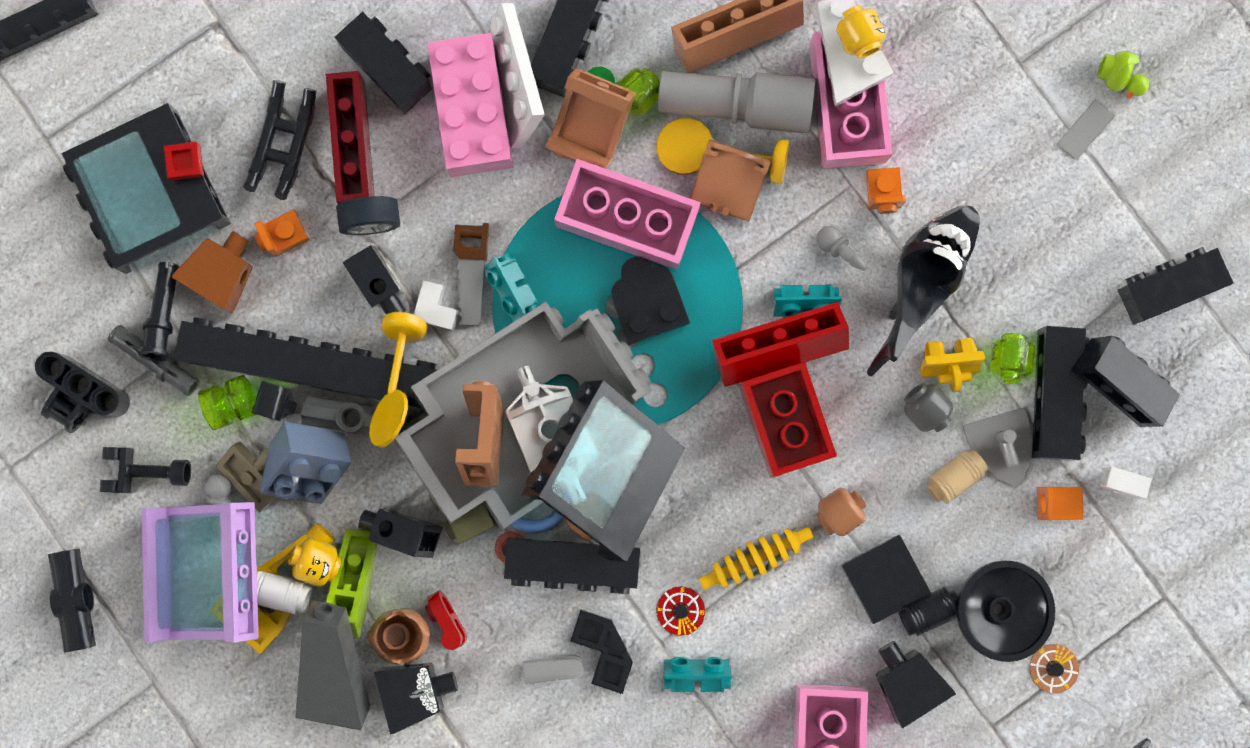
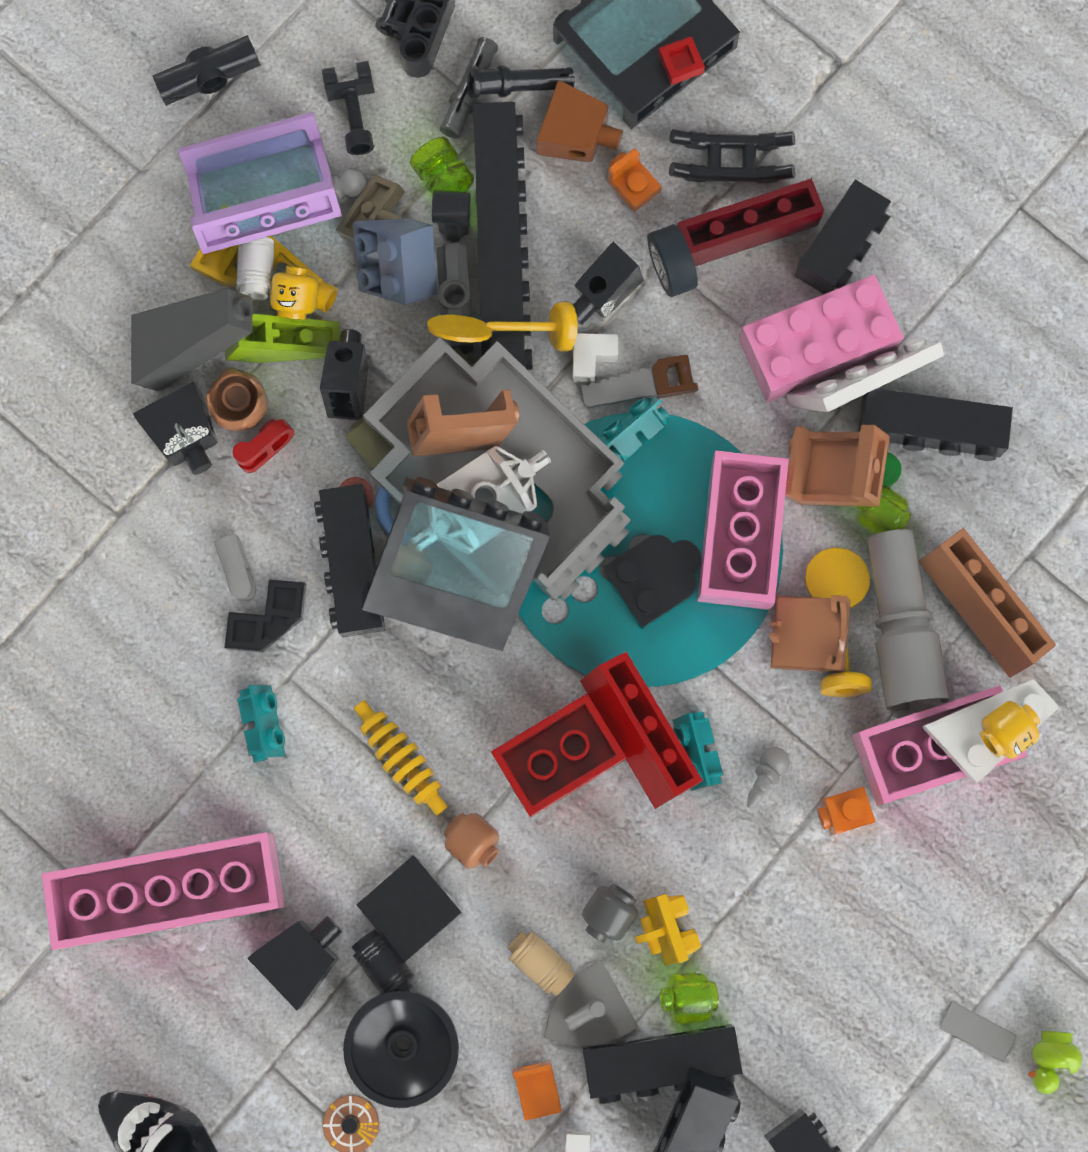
camera: 80 degrees right, 5 degrees down
(680, 611) = (326, 691): red piece -> none
(927, 274) = (760, 877): black piece -> none

